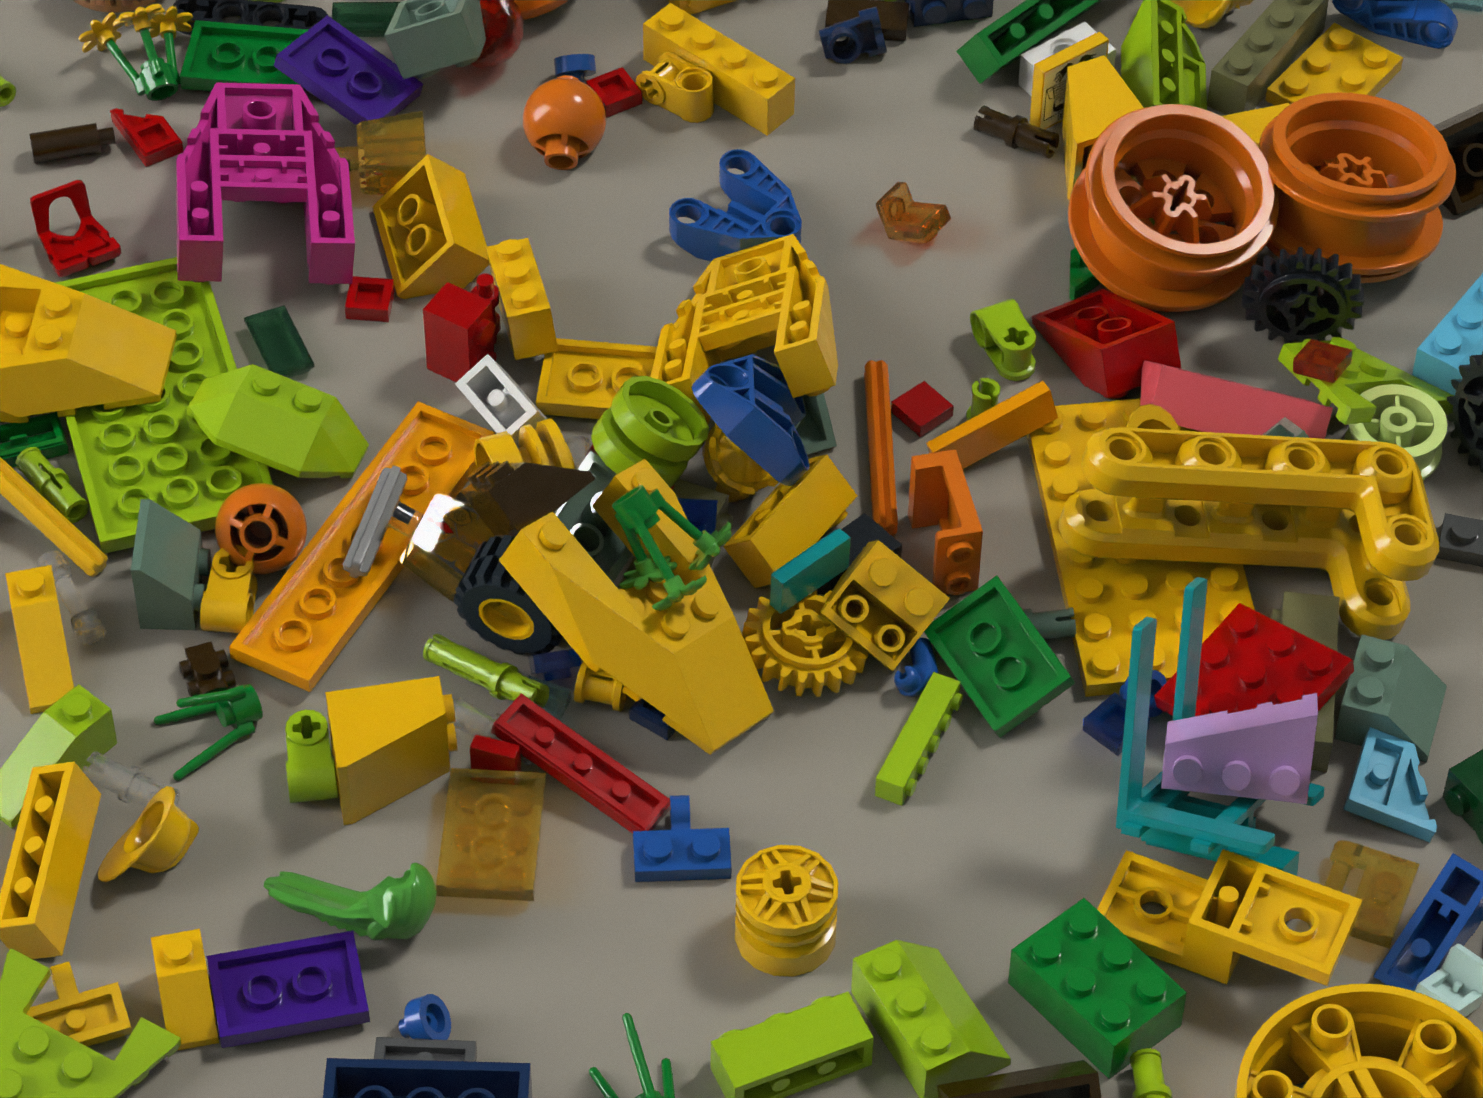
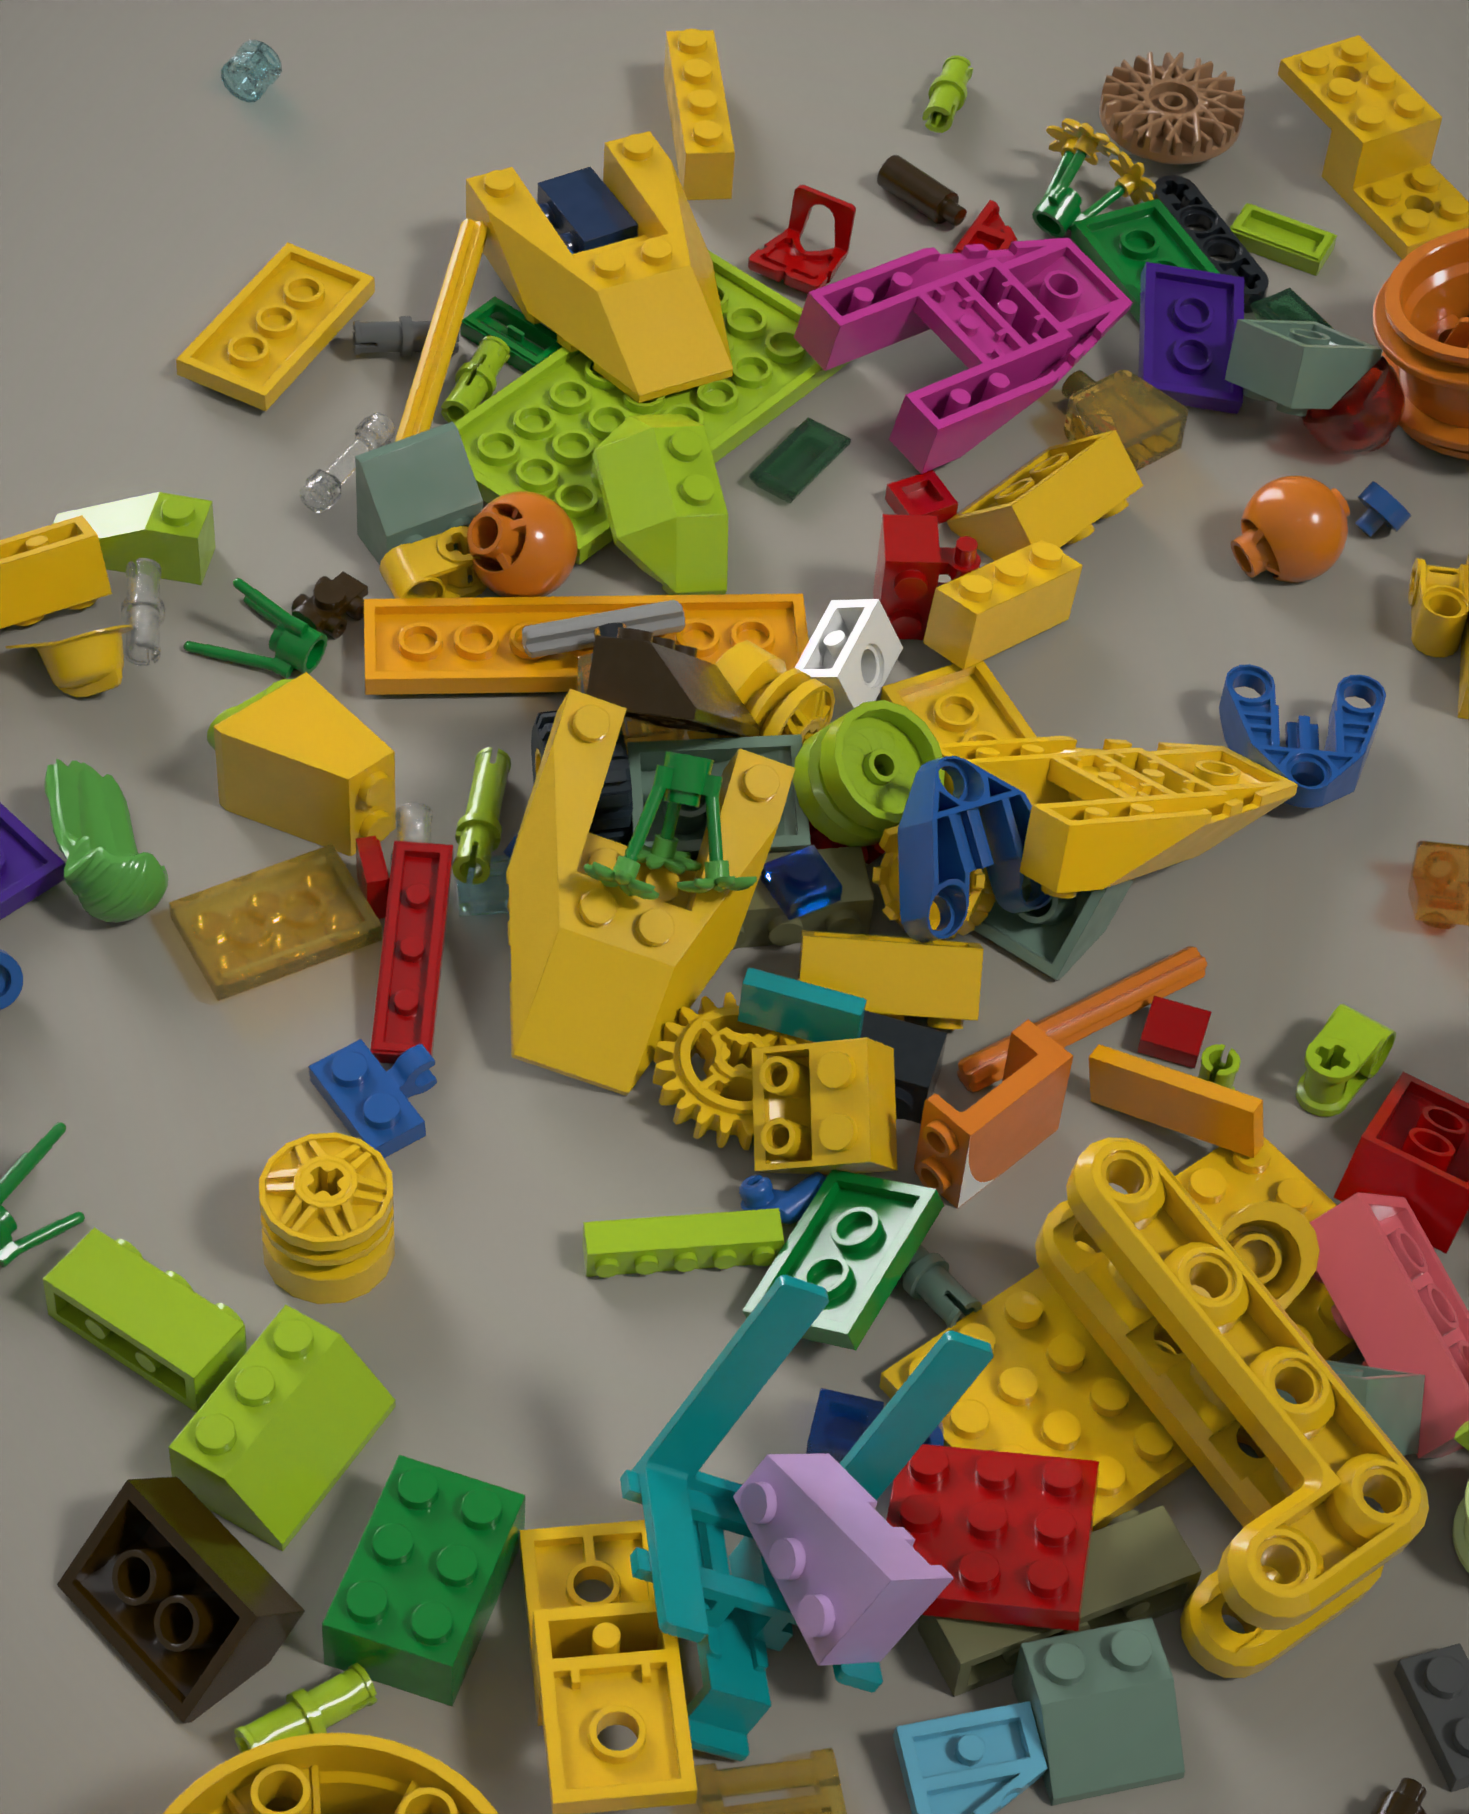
camera: 55 degrees right, 0 degrees up
(39, 636) = (277, 458): yellow slope -> none
(616, 91) = (1387, 559): red tile -> none

